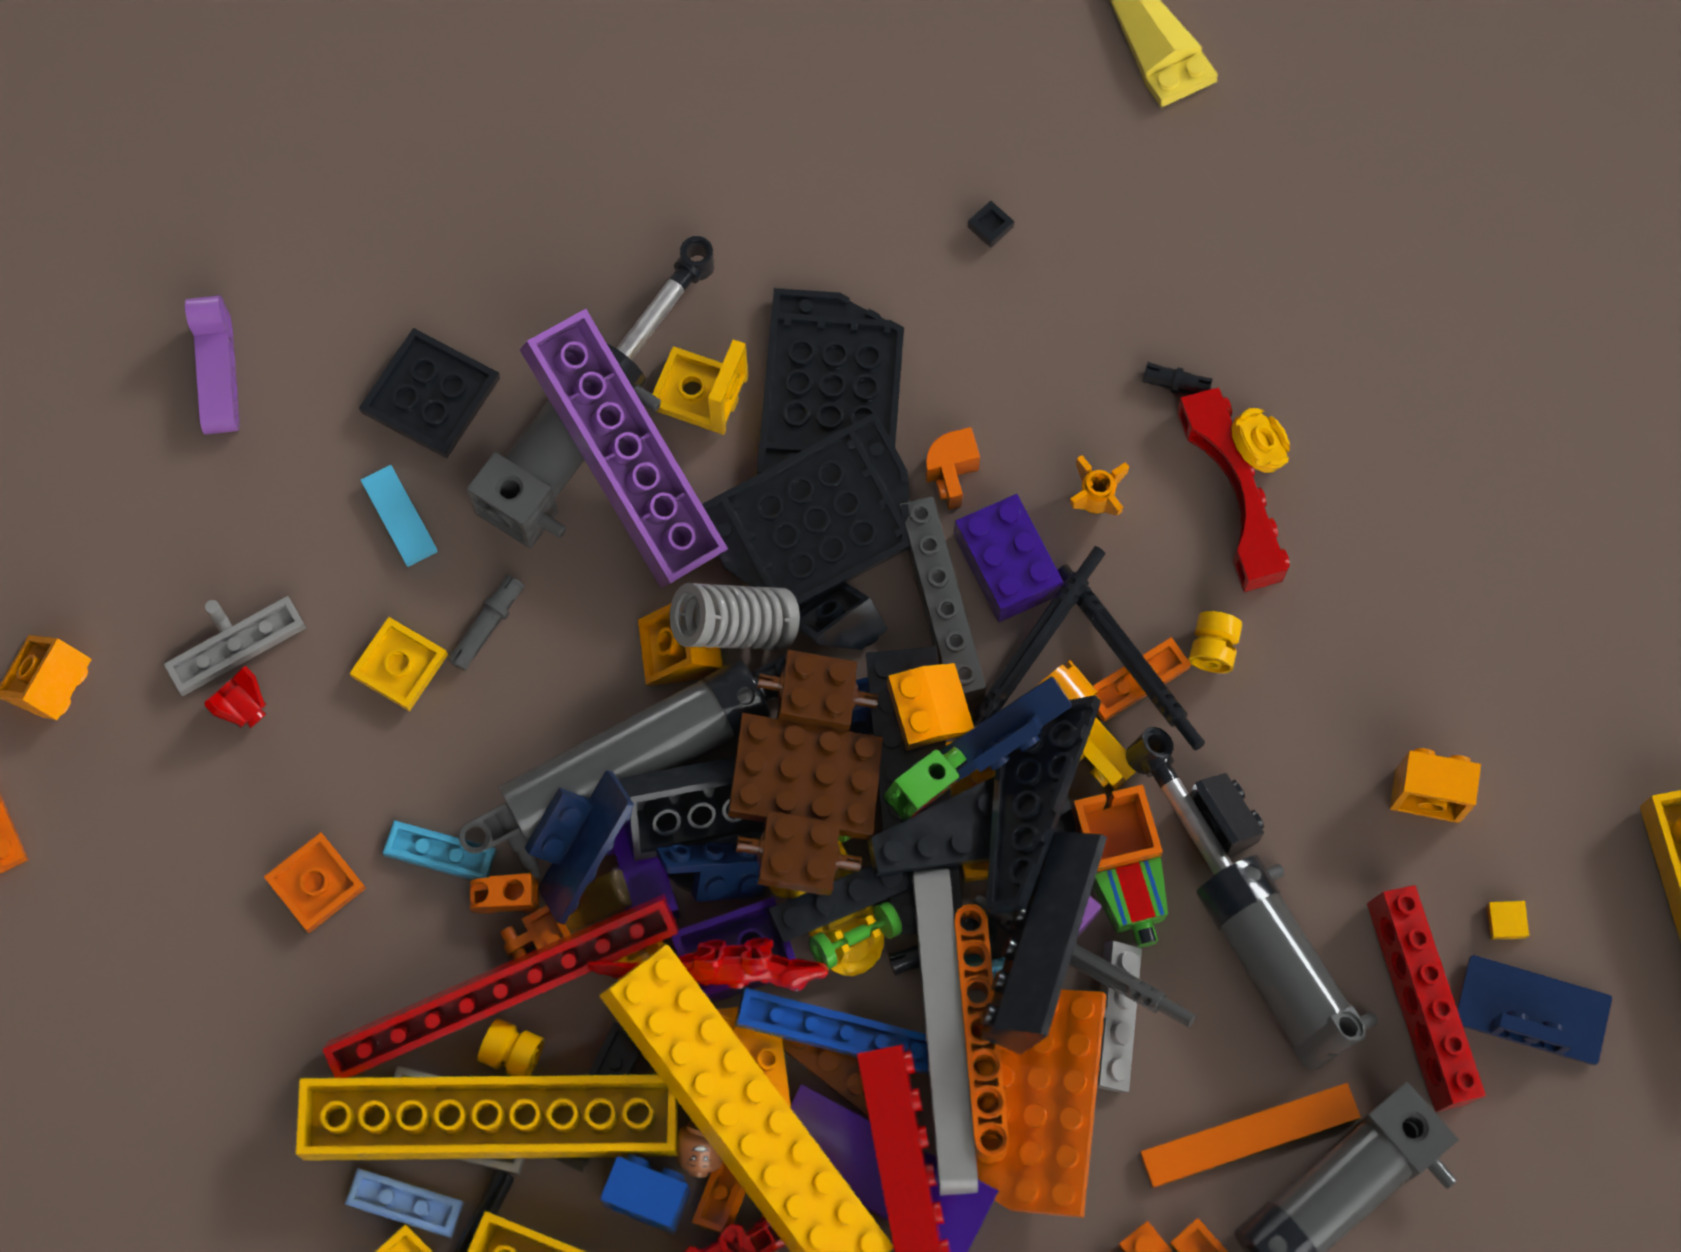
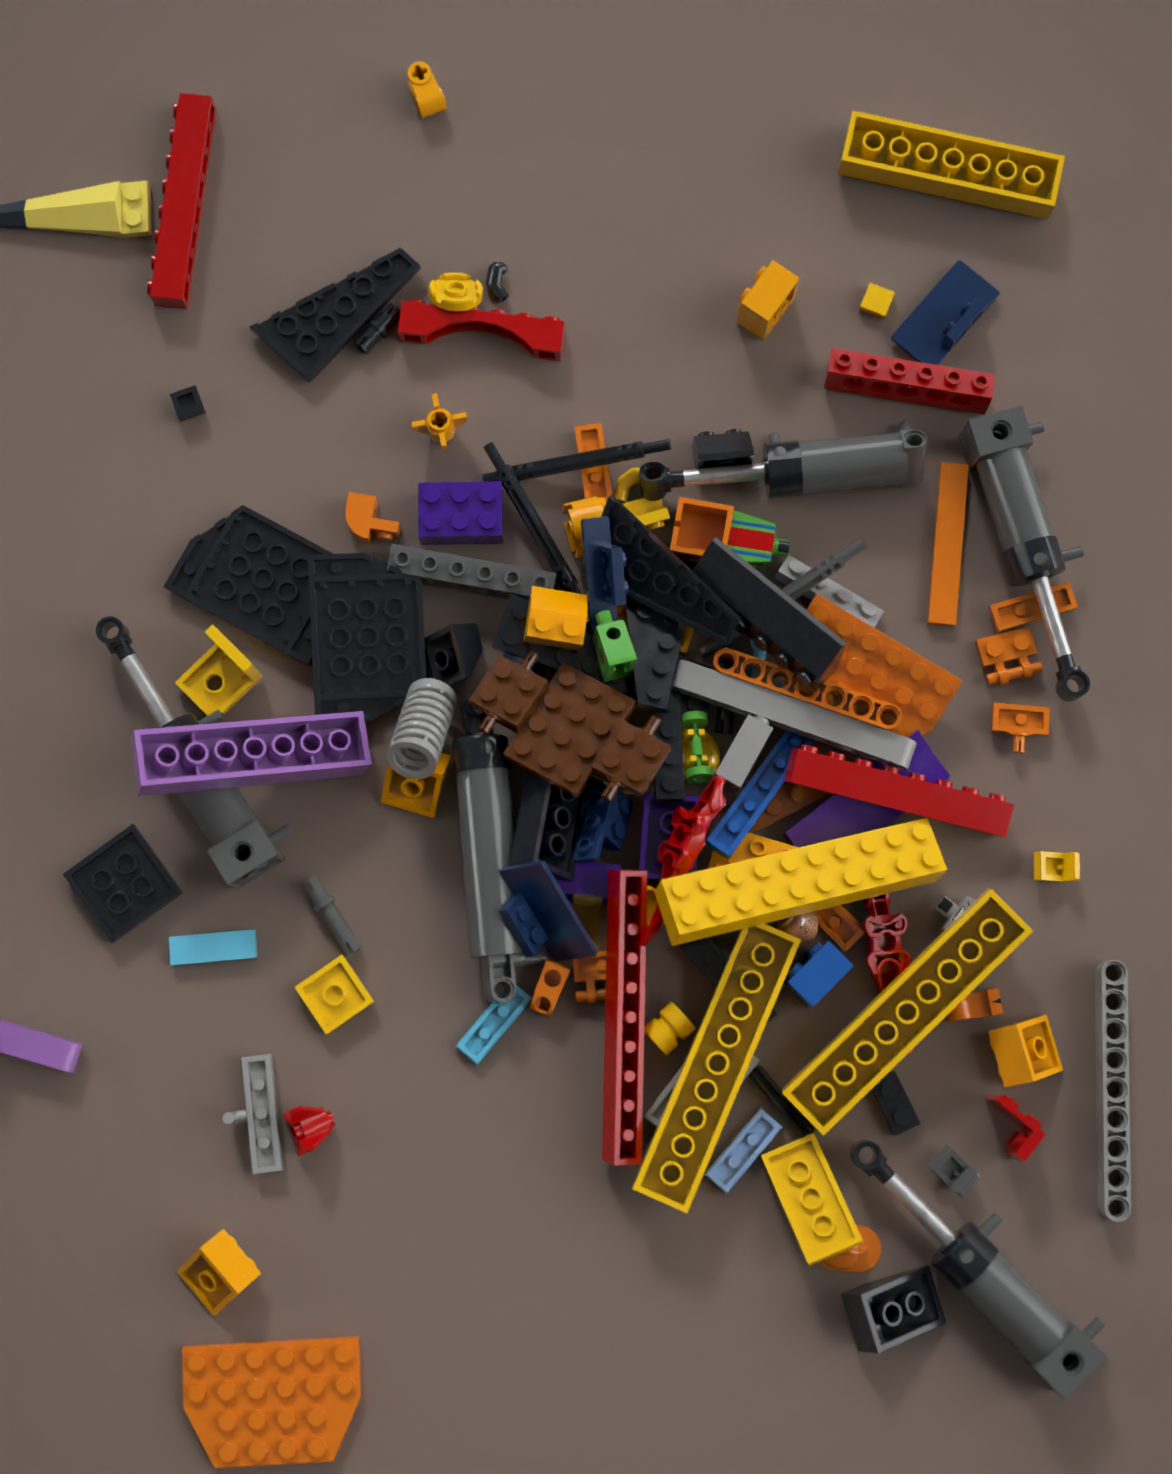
camera: 65 degrees left, 10 degrees up
(314, 882) = (477, 1124): orange plate -> none
(874, 992) = (744, 752): none -> light grey brick
(1130, 723) = (626, 481): none -> yellow arm
(1163, 325) = (328, 319): none -> black wing
(1214, 119) = (182, 201): none -> red brick
(1216, 637) = (594, 399): yellow wheel -> none
(1299, 476) = (493, 281): none -> black arm
(1477, 309) = (425, 92): none -> light orange piece

